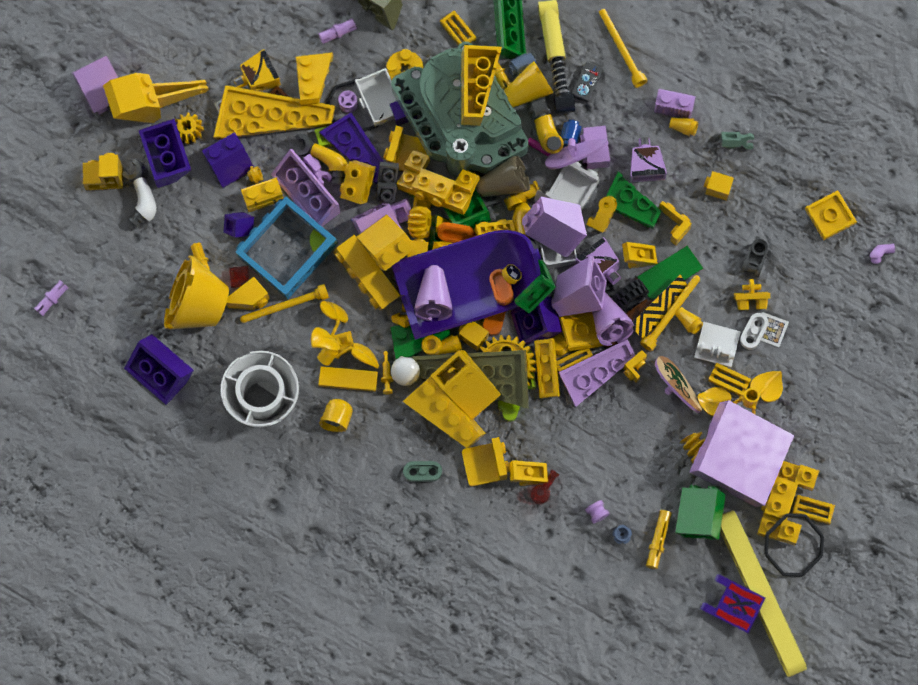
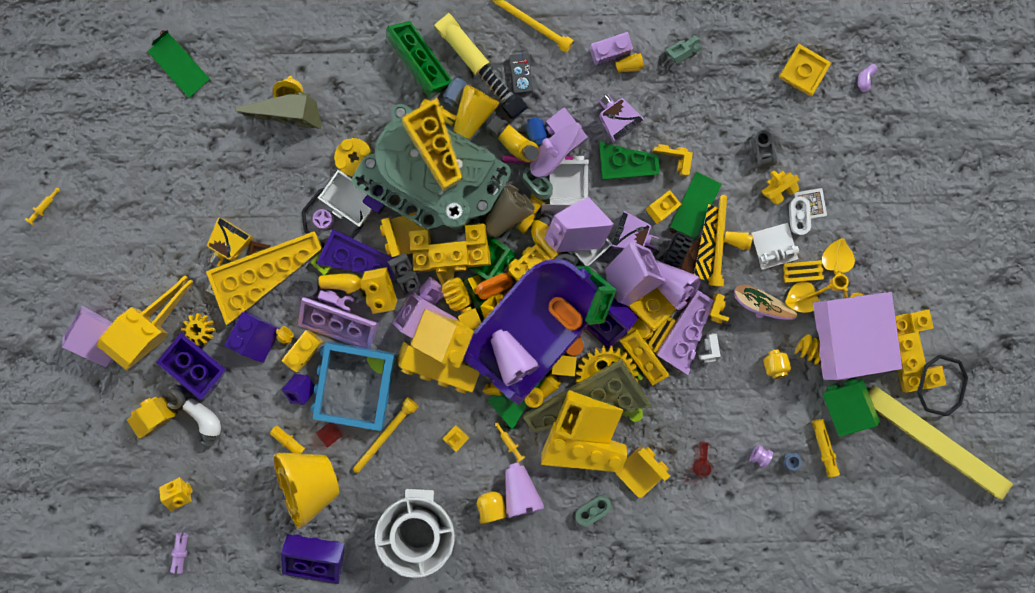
camera: 35 degrees left, 15 degrees up
(82, 247) = (175, 494): none -> yellow brick
(248, 296) = (349, 447): yellow slope -> none
(312, 75) = (276, 214): yellow wing -> none
(322, 339) = (448, 460): yellow plant -> none
(337, 31) = (272, 158): lavender pin -> none
(348, 379) = (479, 467): yellow tile -> none
(369, 418) = (520, 492): none -> lavender cone
(405, 371) = (525, 434): white hair -> none
(448, 18) = (393, 98): yellow tile -> none
(511, 274) = (568, 298): tile -> none
(528, 472) = (684, 459): yellow slope -> none
(544, 177) = (540, 187): none -> sand green plate
(603, 217) = (611, 189): yellow leg -> none
(611, 393) = (712, 345): none -> white bracket
(658, 442) = (777, 364): none -> yellow head
(718, 185) = (693, 101): yellow brick -> none
(737, 605) = (925, 466): flag -> none
(814, 510) = (953, 338): yellow tile -> none

